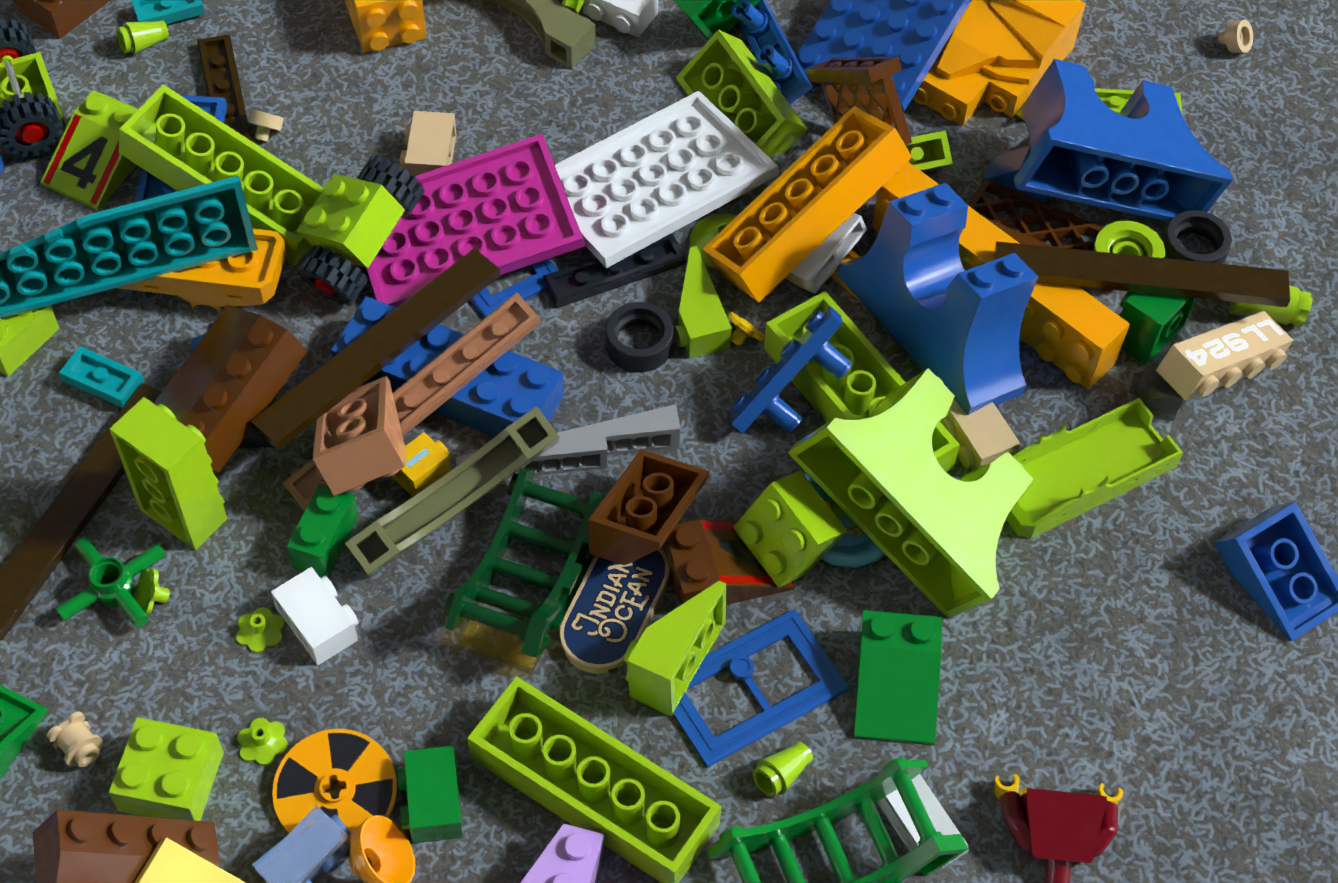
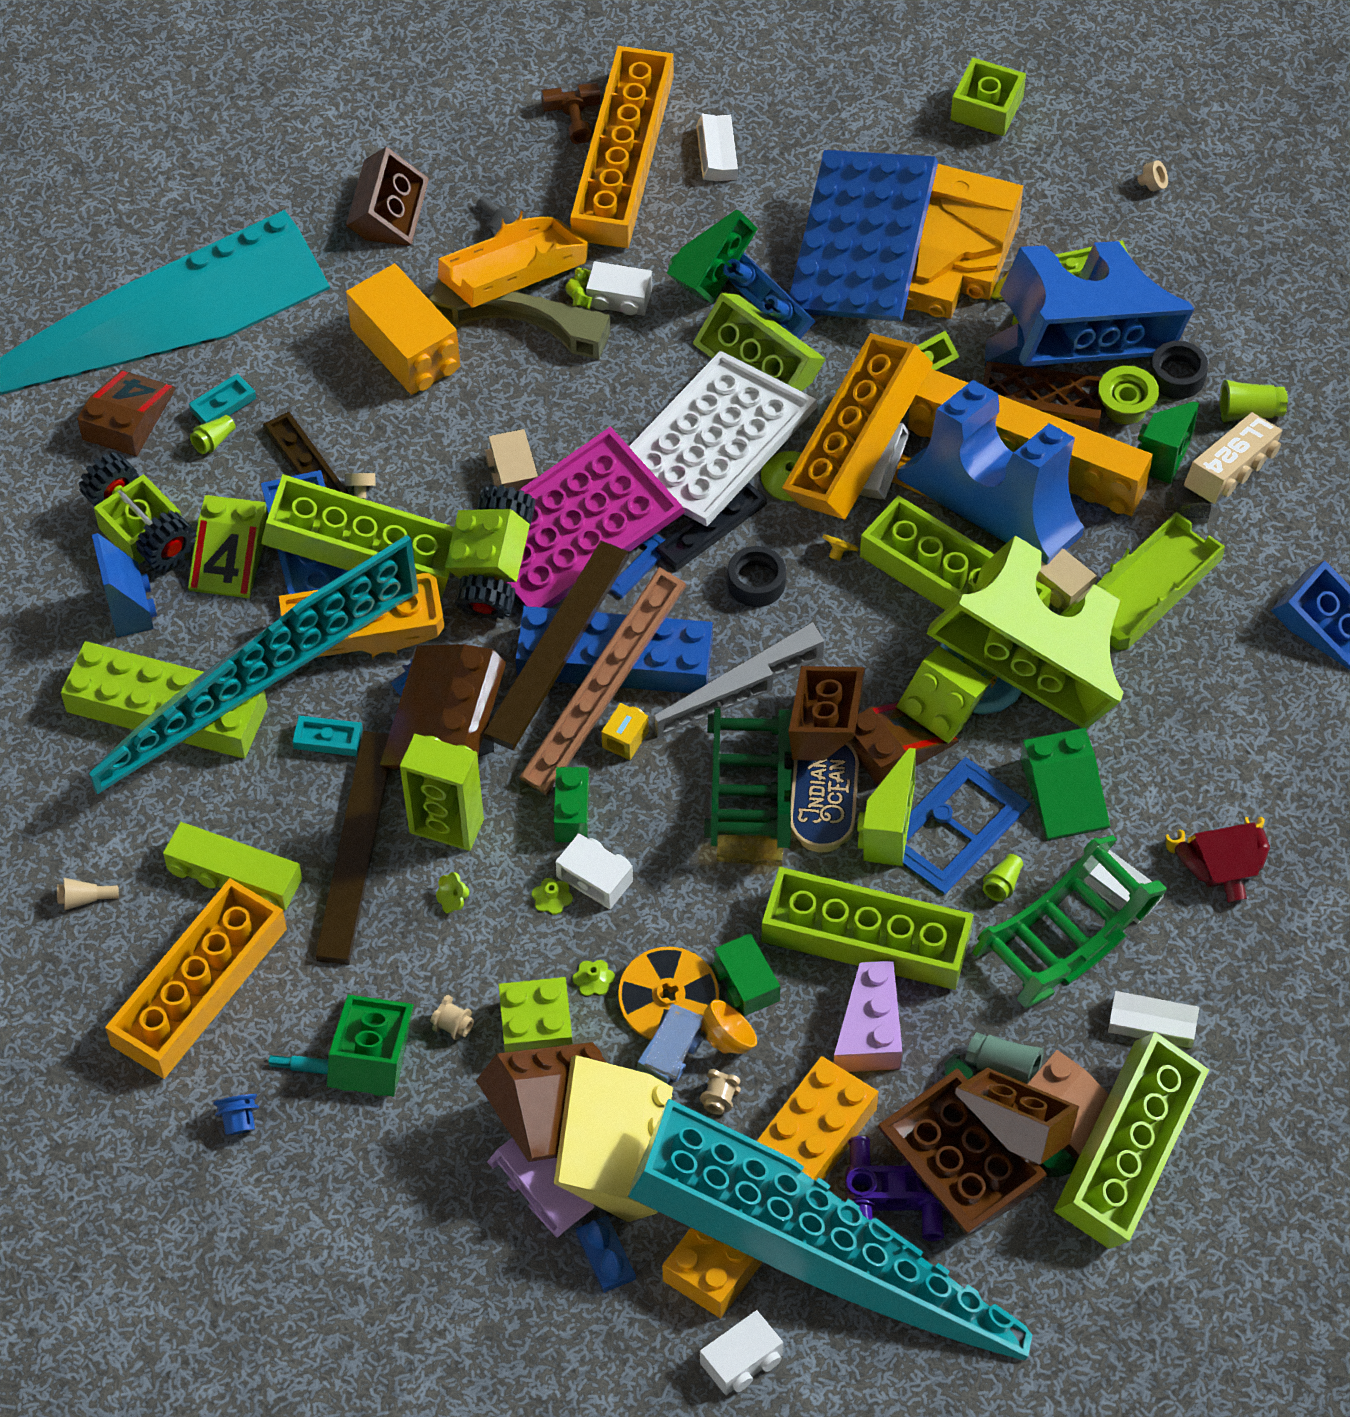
camera: 15 degrees left, 0 degrees up
(114, 594) = (422, 903): green bar -> none
(360, 438) = (578, 720): nougat slope -> none
(454, 492) = (667, 742): olive arch -> none
(701, 320) = (800, 543): lime slope -> none
(794, 355) = (898, 556): blue plate -> none
(857, 74) = (863, 303): reddish brown fence -> none
(1152, 274) = (1155, 408): dark brown tile -> none

